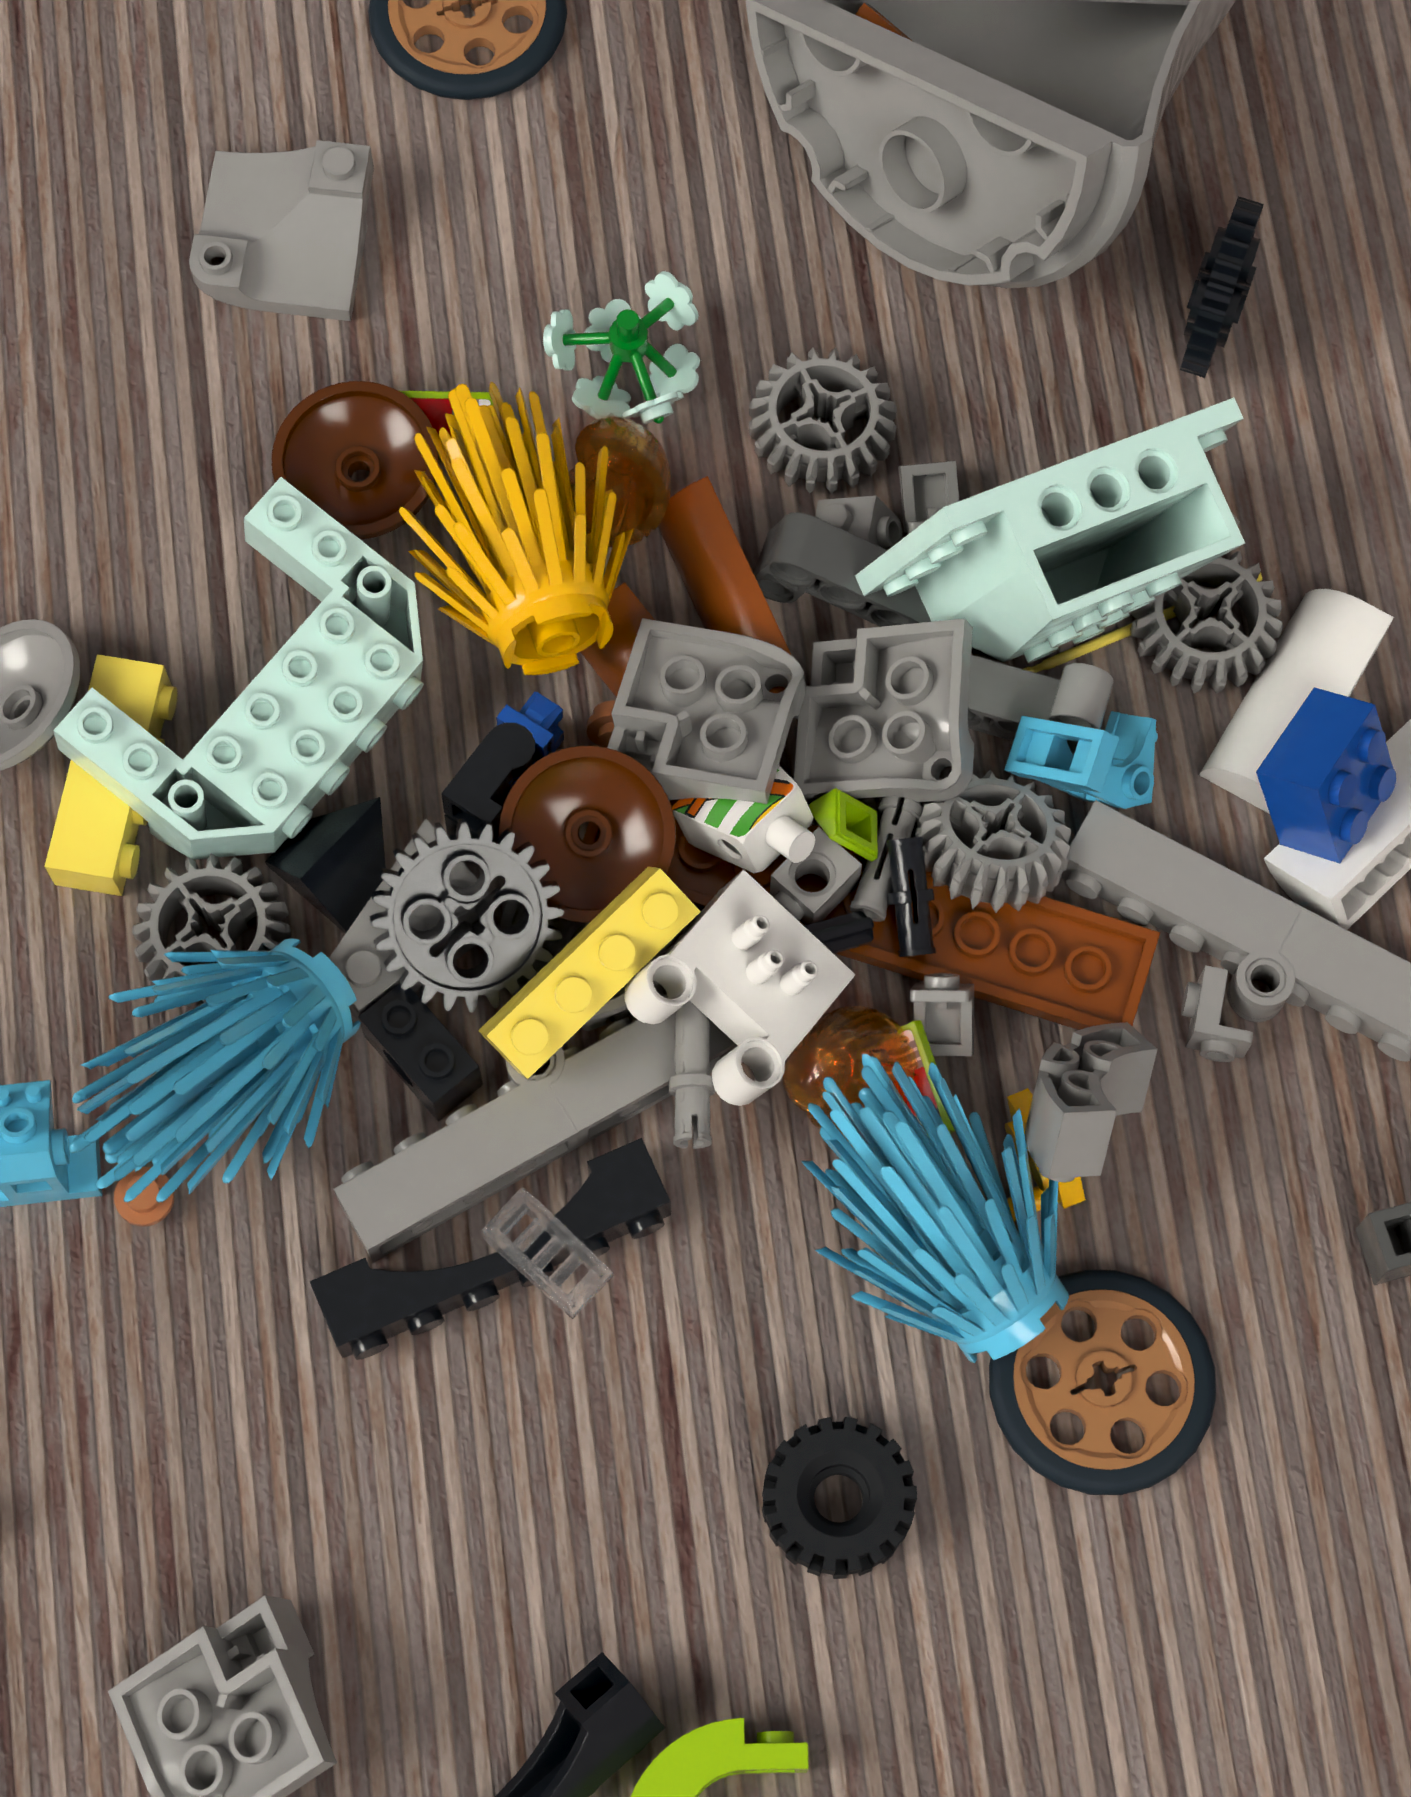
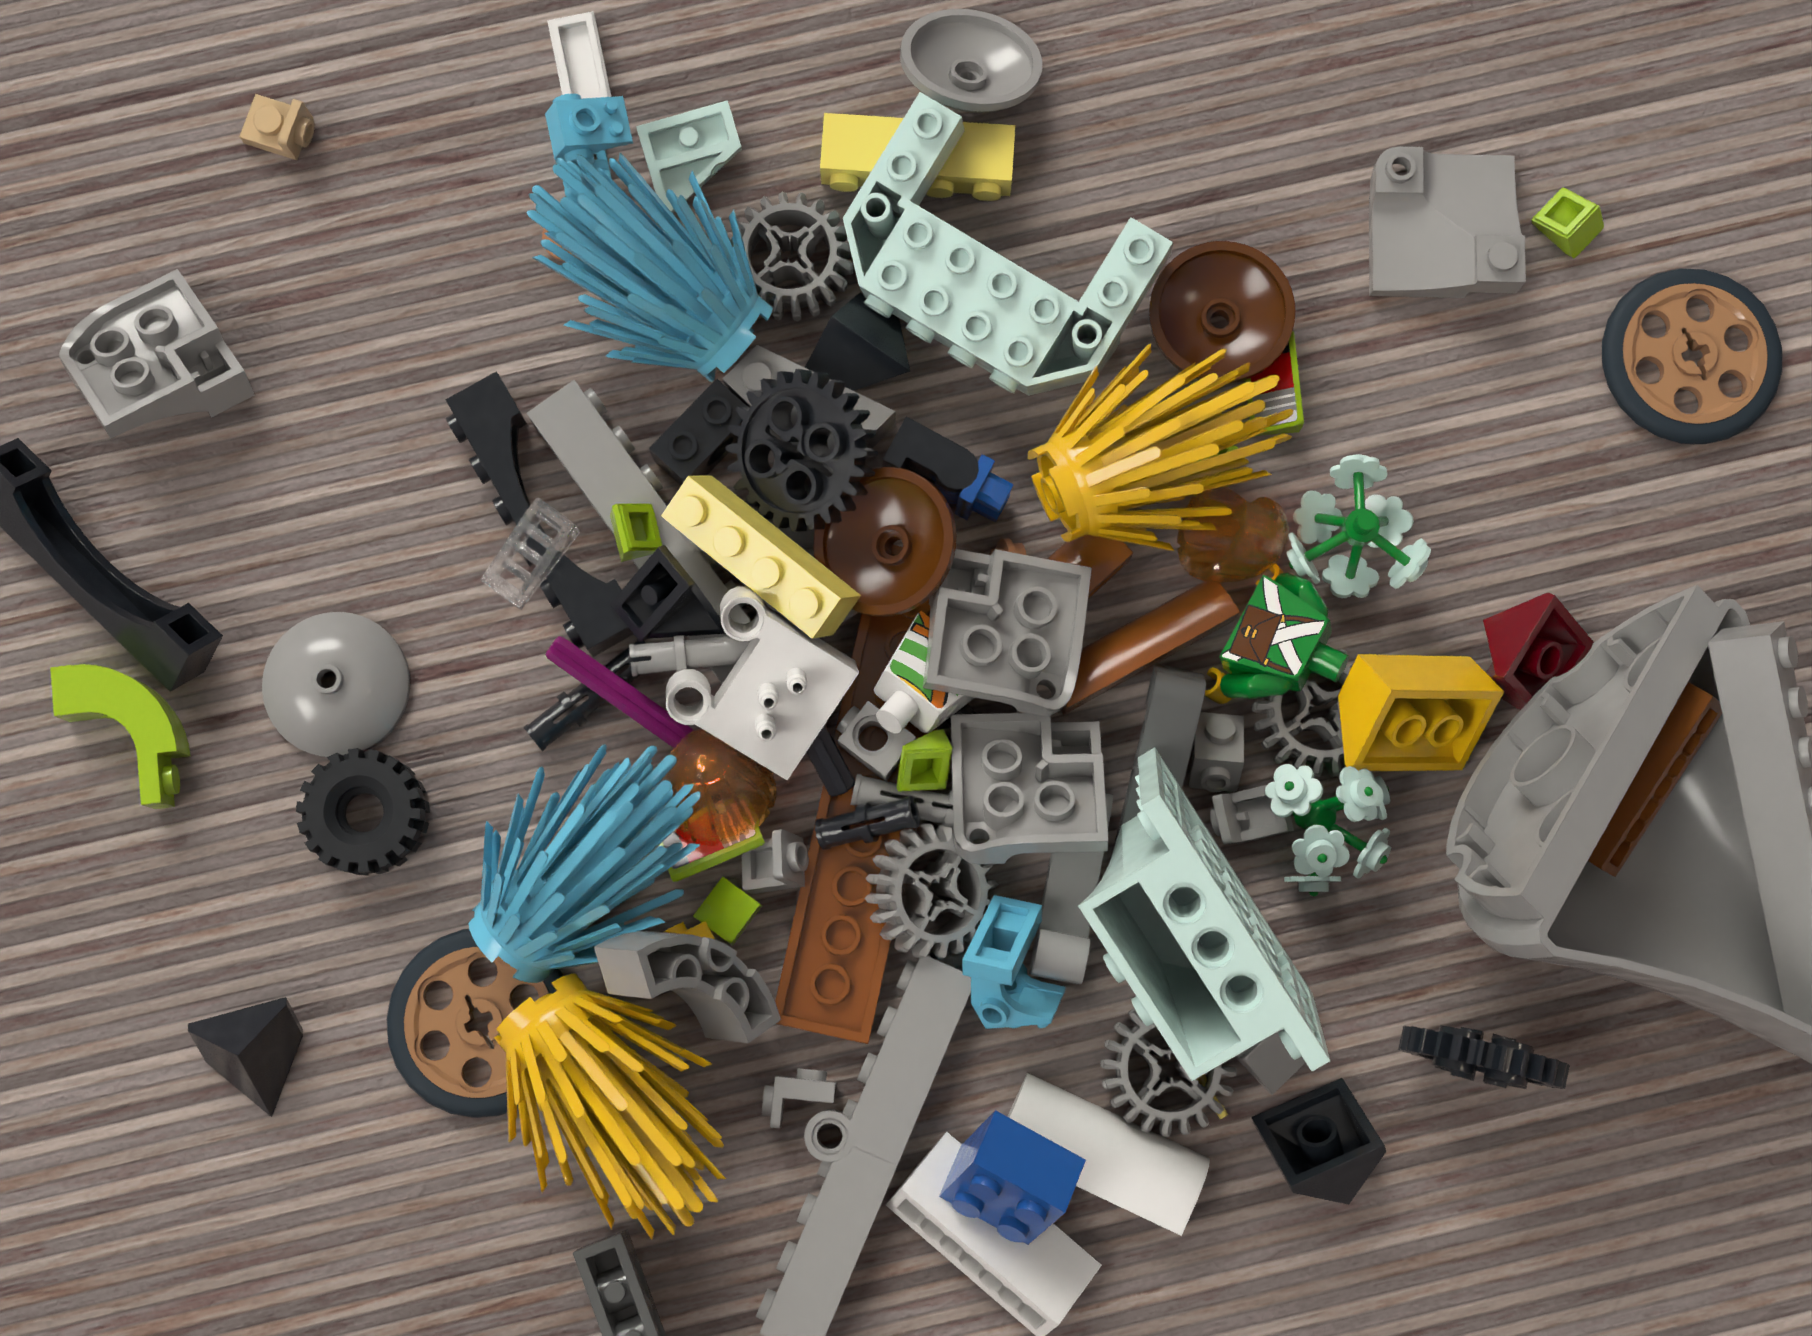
camera: 85 degrees right, 10 degrees up
(55, 1034) = (685, 143): none -> light aqua wing
(297, 110) = (1569, 221): none -> lime slope
(534, 1129) = (635, 530): none -> lime slope
(624, 1094) = (665, 601): none -> black slope
(681, 1572) = (362, 703): none -> light grey dish
(726, 1170) = (616, 691): none -> magenta axle
(731, 1232) = (543, 729): none -> black pin
(745, 438) = (1277, 642): none -> torso
(779, 202) = (1533, 646): none -> dark red slope
(837, 314) = (1414, 711): none -> yellow slope
(932, 435) = (1322, 848): none -> light aqua plant
(991, 1077) = (727, 910): none -> lime slope
(1119, 1662) = (252, 1048): none -> black slope
(1191, 1234) = (606, 1100): none -> yellow plant
(1295, 468) = (1322, 1142): none -> black slope

